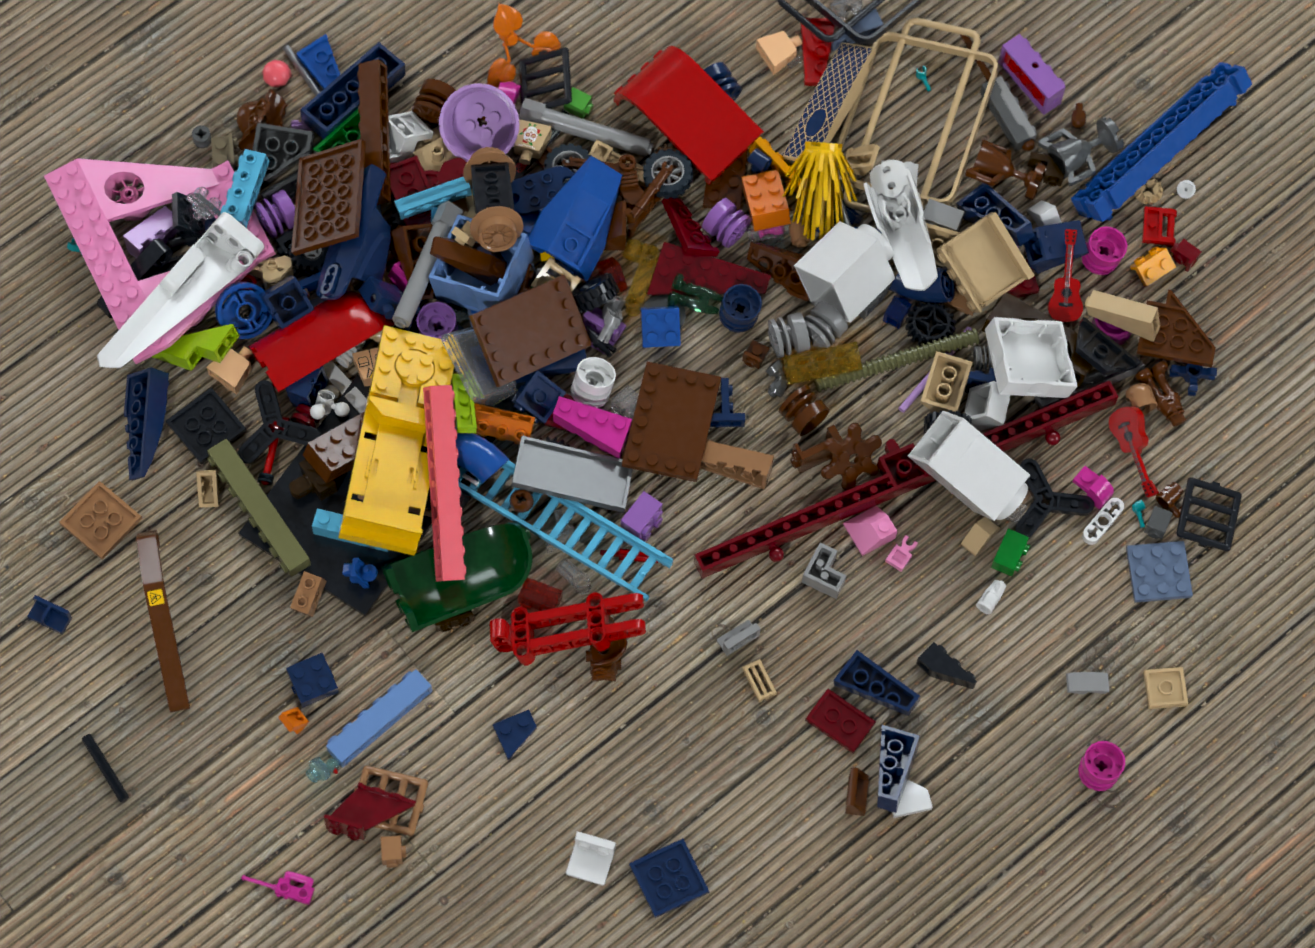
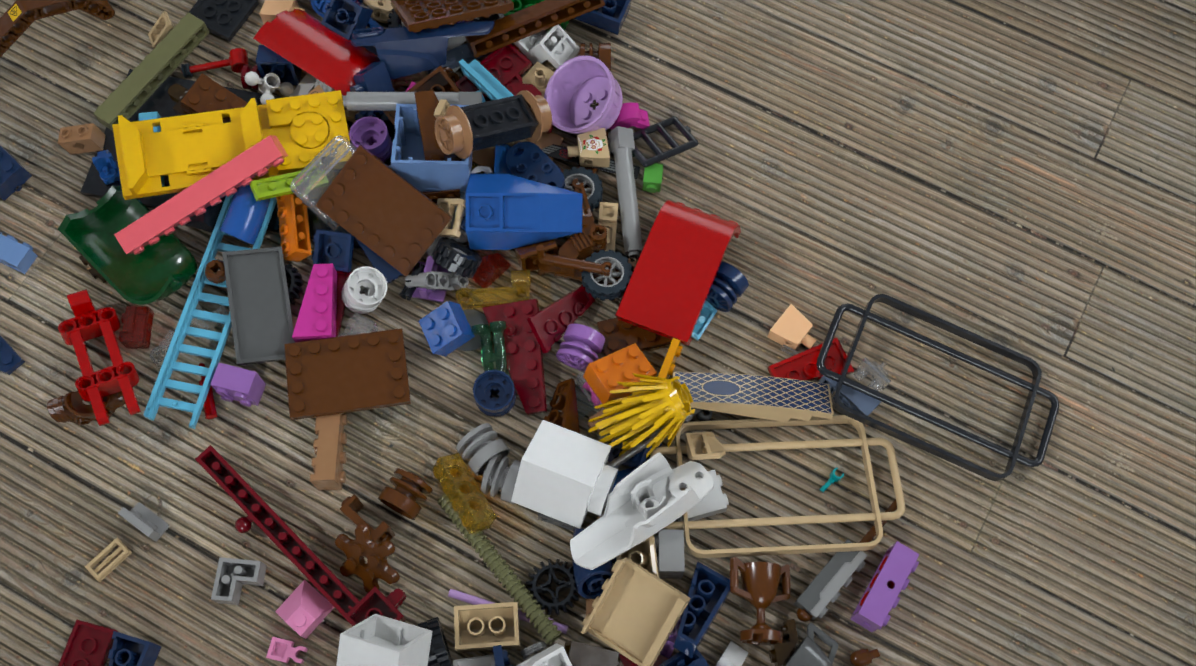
camera: 70 degrees right, 0 degrees up
(270, 413) = (220, 51): black piece -> none
(505, 23) = (691, 78): orange plant -> none
(727, 417) = (389, 420): dark blue bracket -> none
(755, 354) = (455, 427): reddish brown bracket -> none
(759, 161) = (657, 353): dark blue piece -> none
(779, 385) = (427, 461): dark grey arm -> none
(897, 312) = (555, 547): clear blue brick -> none

